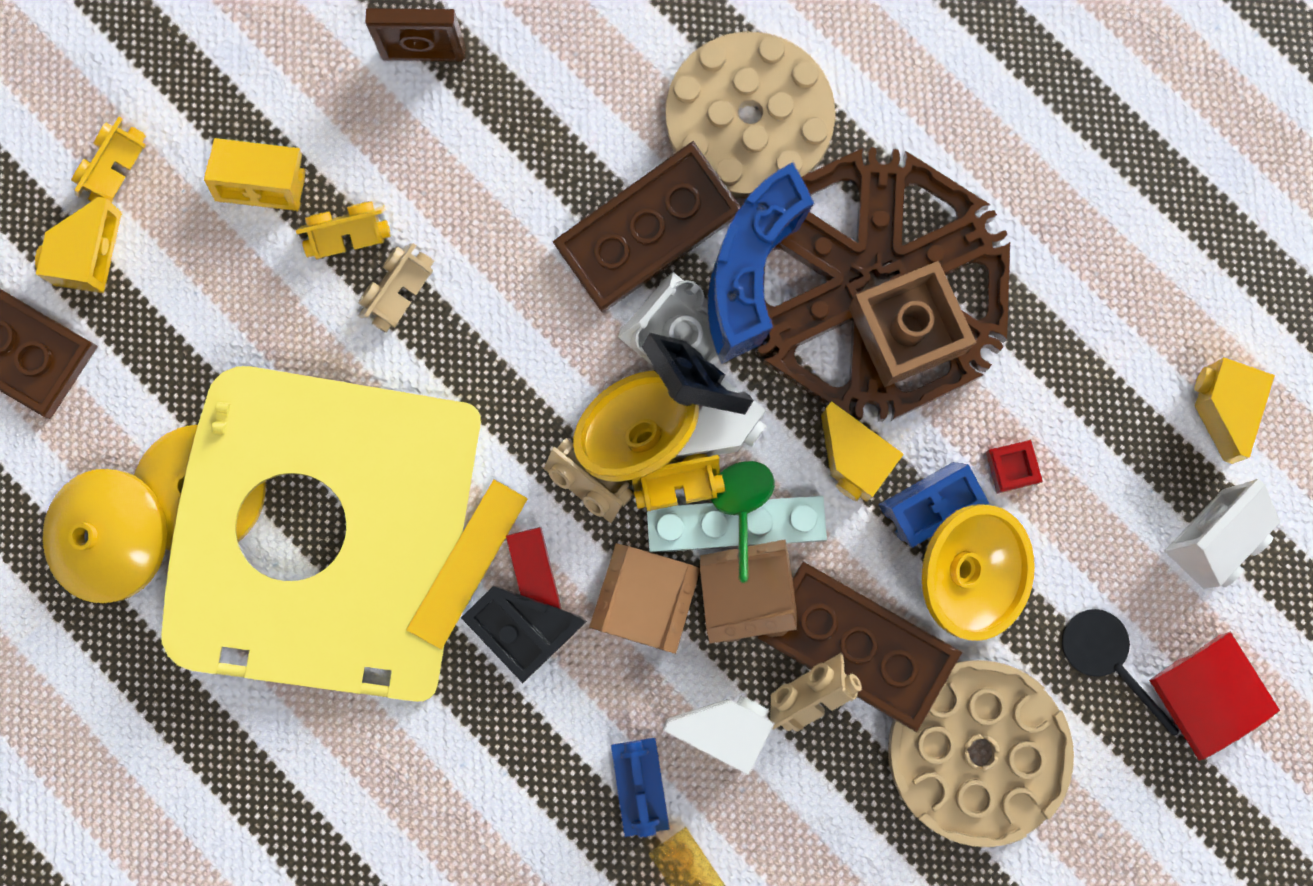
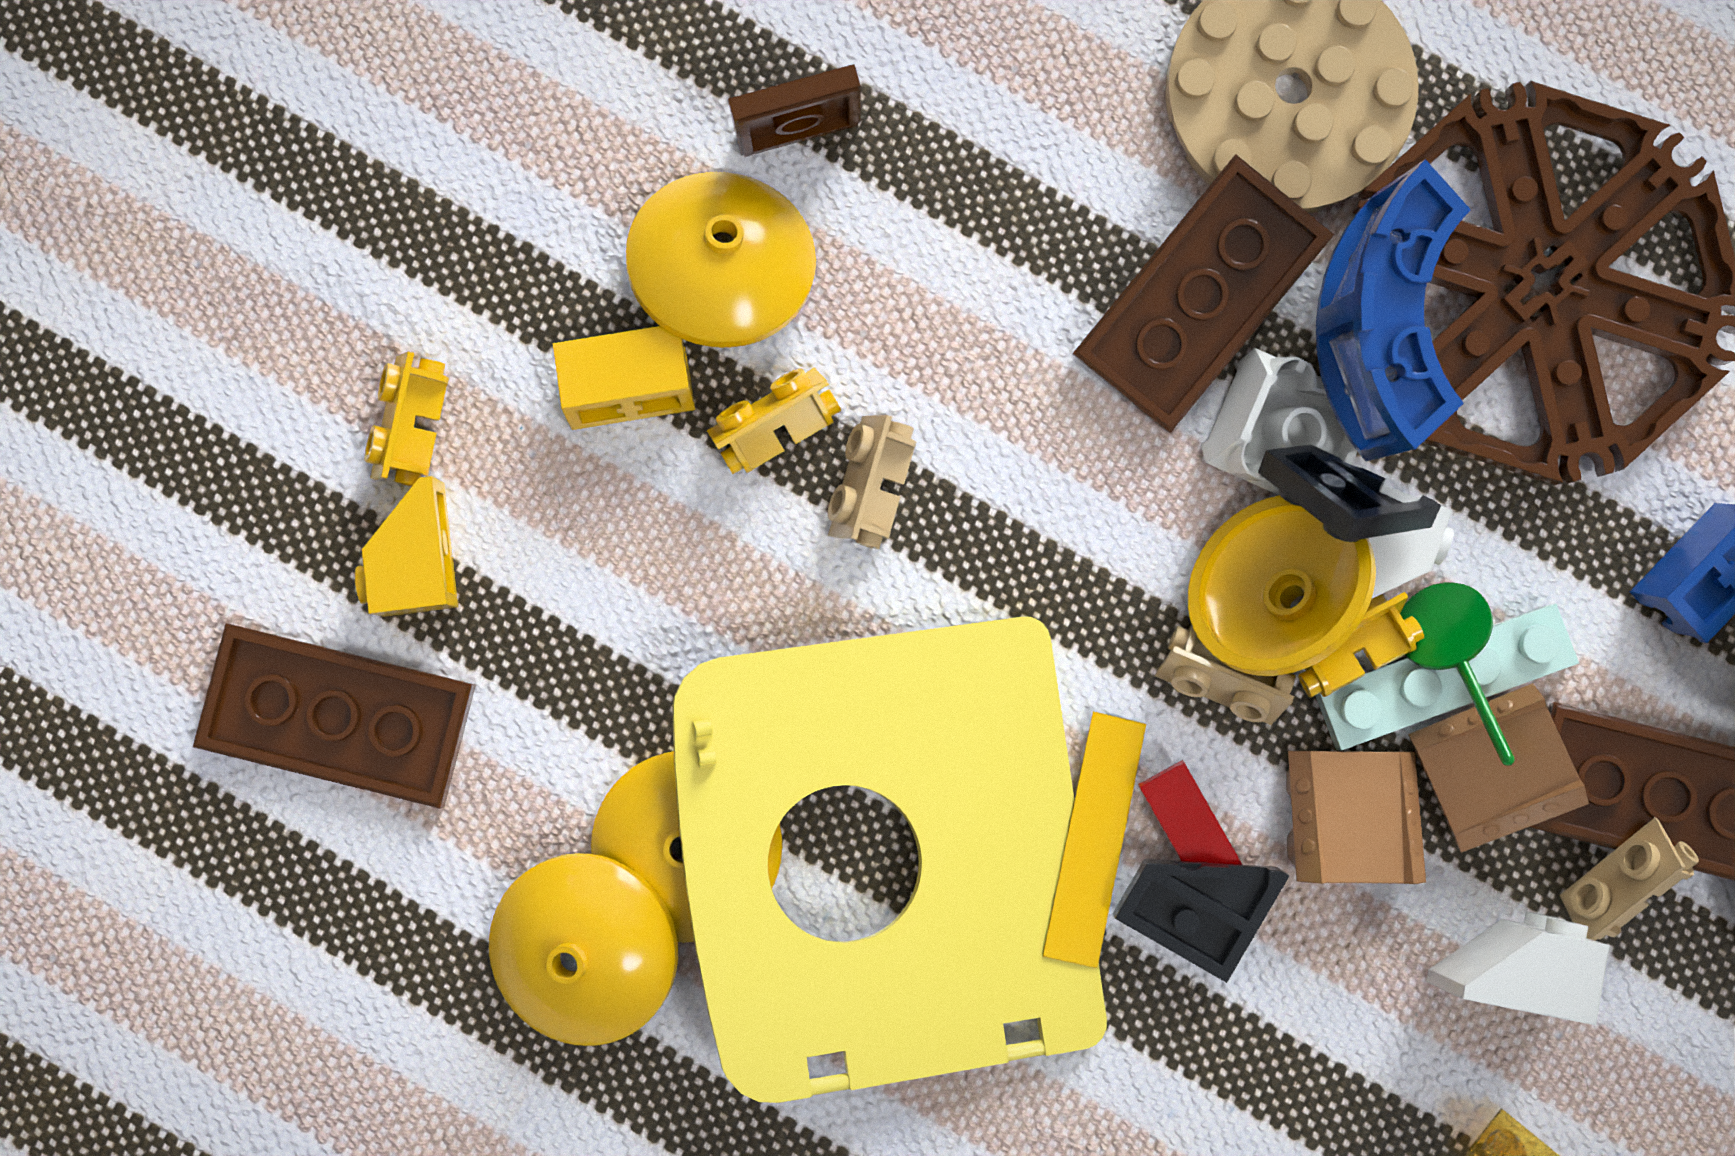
camera: 20 degrees left, 5 degrees up
(337, 134) = (712, 288): none -> yellow dish
(640, 787) = (1425, 1075): blue hinge -> none
(856, 454) = (1586, 534): yellow slope -> none
(911, 324) = (1625, 334): medium nougat brick -> none

